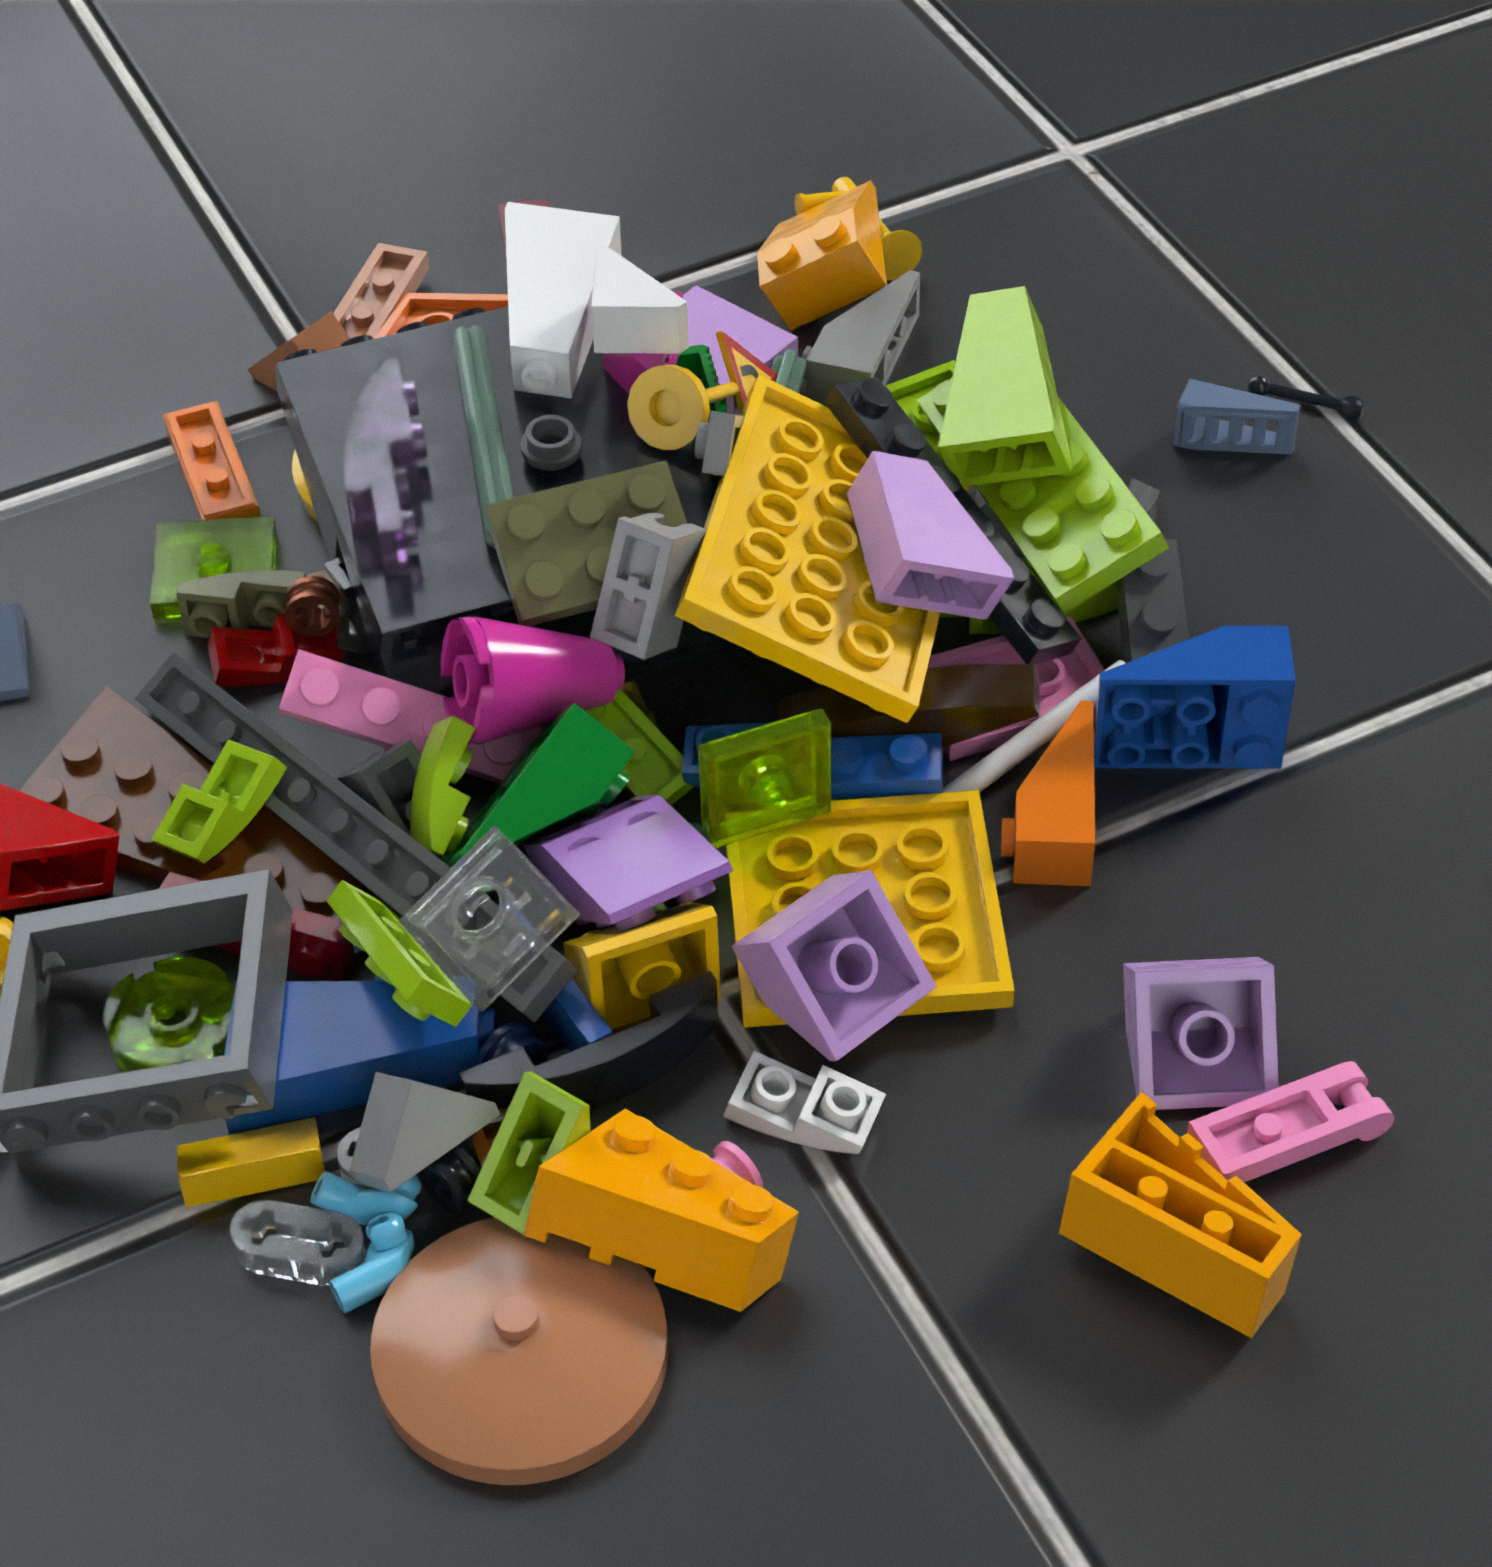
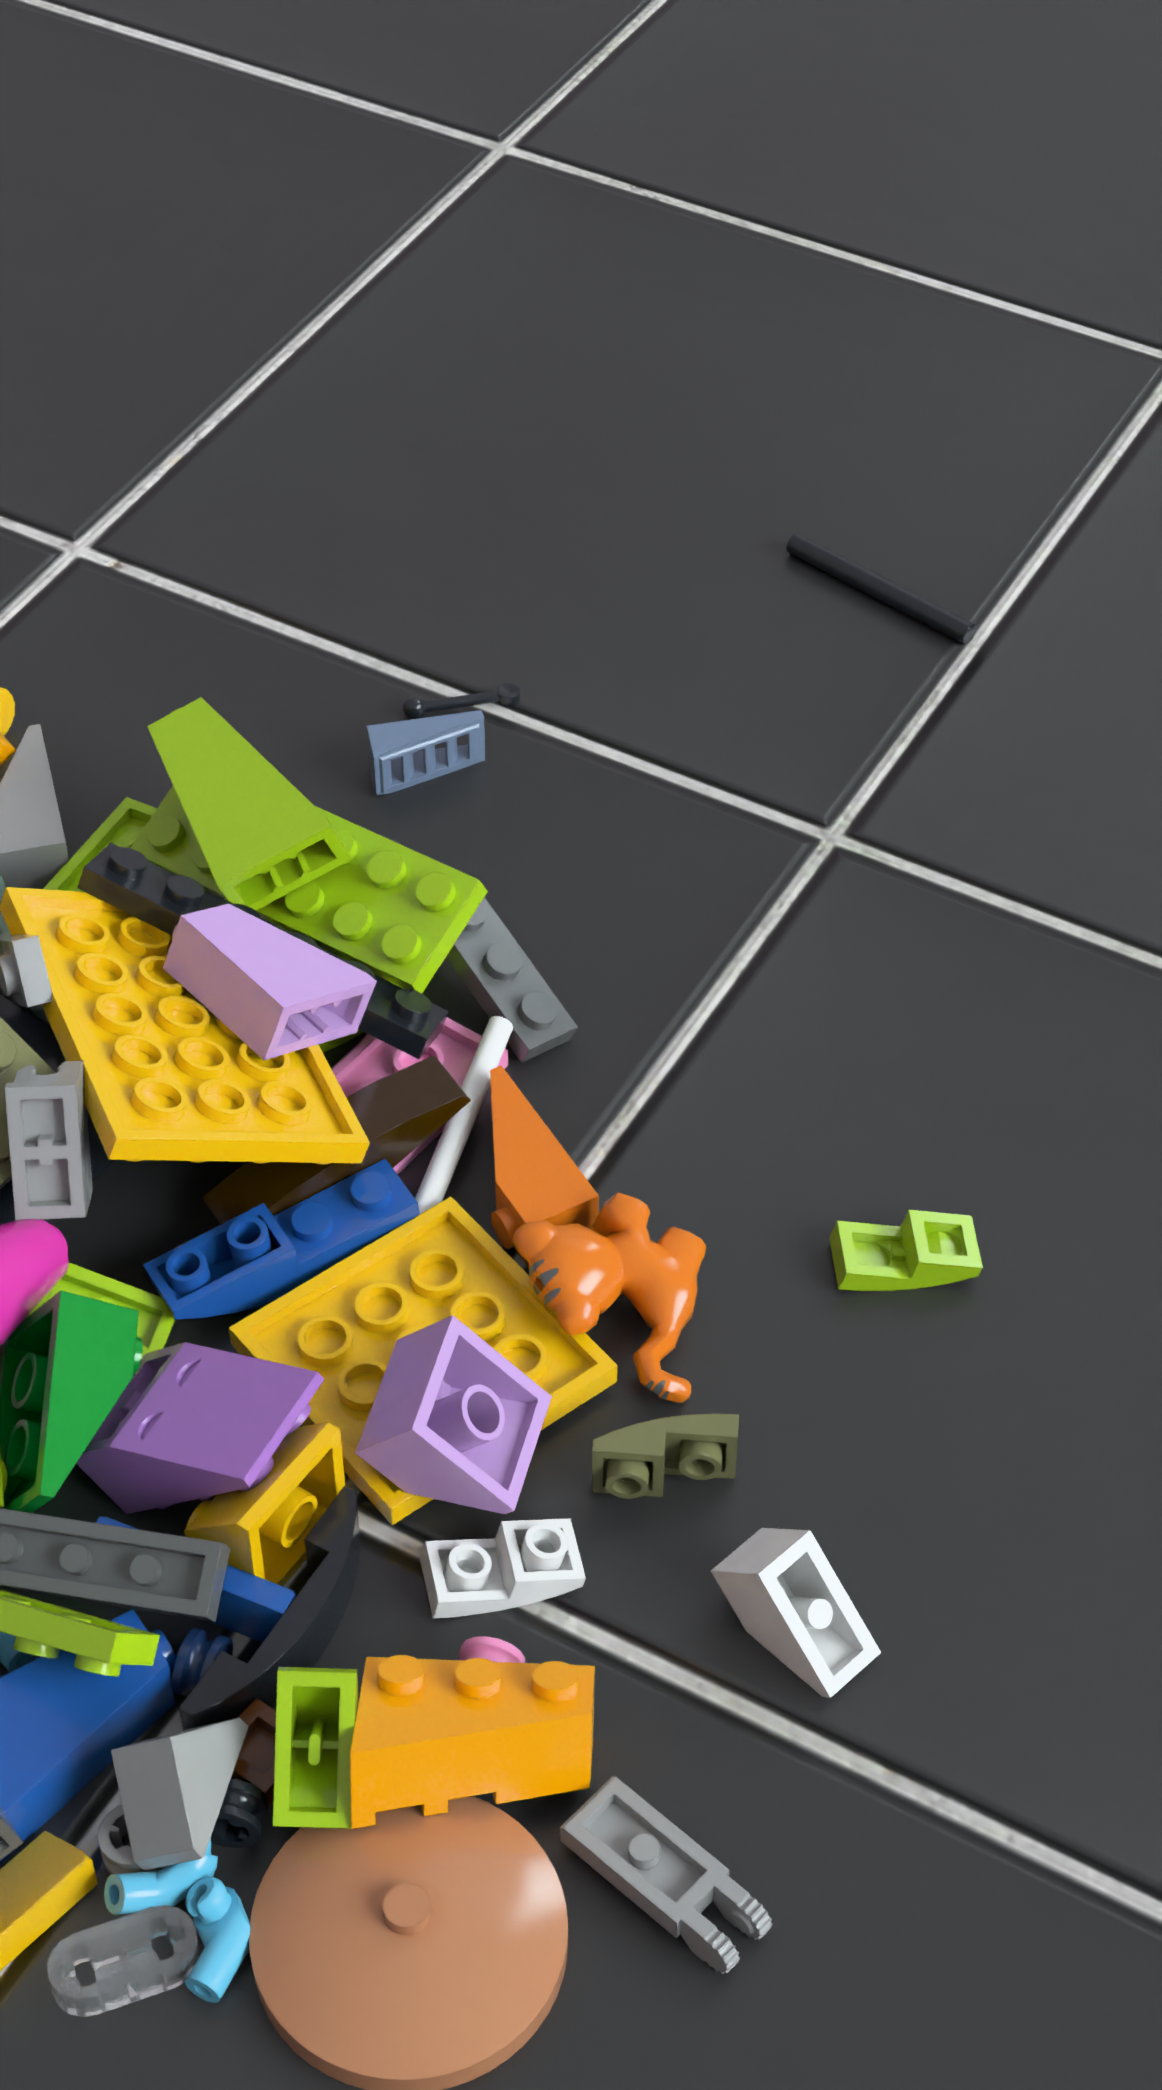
camera: 35 degrees left, 0 degrees up
(526, 922) = (145, 1581): clear piece -> none
(748, 1406) = (663, 1871): none -> light grey hinge
(766, 778) = (276, 1275): clear neon green plate -> none
(987, 1074) = (638, 1456): none -> olive slope
(1018, 1265) = (797, 1607): none -> white slope
(1035, 898) = (586, 1270): none -> orange animal
(1178, 1222) = (911, 1498): light orange wedge -> none
(1199, 703) = (602, 1020): blue slope -> none
(1201, 1030) = (797, 1320): lavender slope -> none
(1291, 1123) = (921, 1368): bright pink plate -> none
(1370, 1031) = (918, 1254): none -> lime slope

